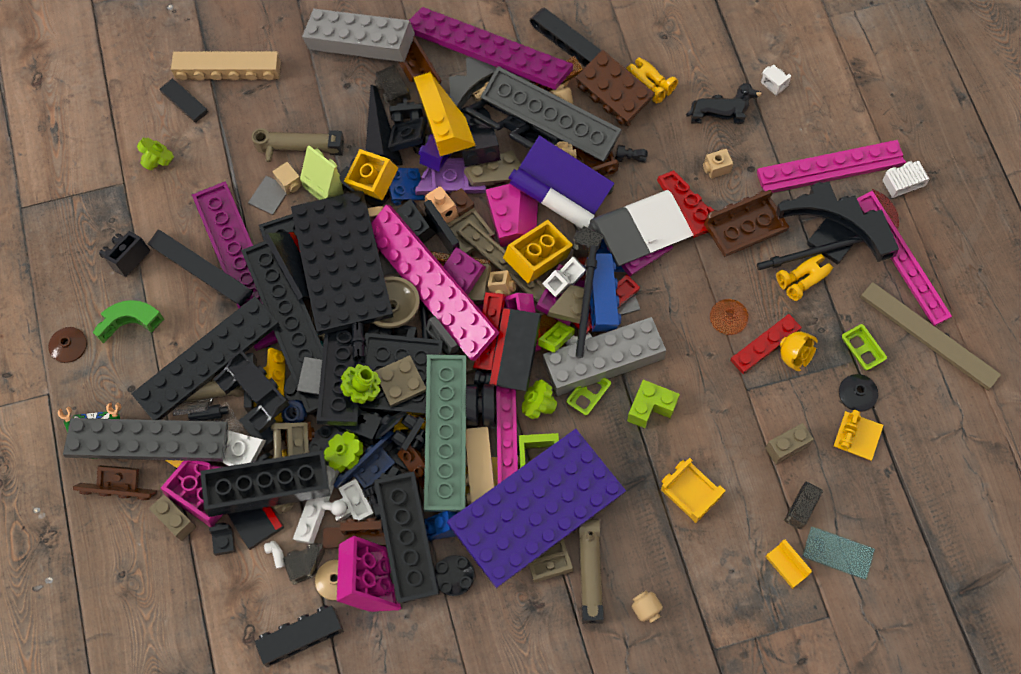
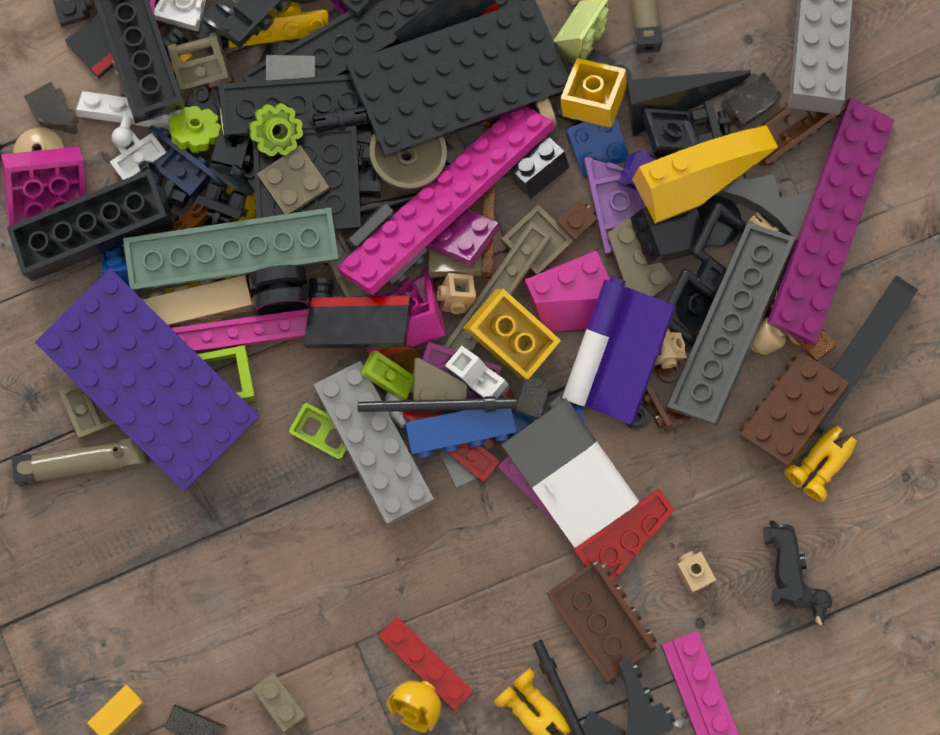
camera: 75 degrees right, 10 degrees up
(278, 556) = (68, 70): white arm -> none
(290, 417) = (242, 59): dark blue head -> none
(370, 530) = (95, 158): reddish brown bracket -> none
(441, 227) = (526, 202): black tile -> none
(443, 204) = (565, 195): light nougat torso -> none
(454, 575) = (56, 293): black dish -> none
(492, 309) = (413, 283): red plate -> none
(539, 400) = (298, 365): lime plant -> none
(639, 155) = (693, 434): black piece -> none
(647, 606) = (40, 536): tan head -> none
(652, 398) = (319, 509): lime brick -> none
(691, 490) = (203, 580): yellow panel -> none
(729, 324) = (461, 624): clear orange dish -> none
(775, 79) = (852, 644): white brick -> none

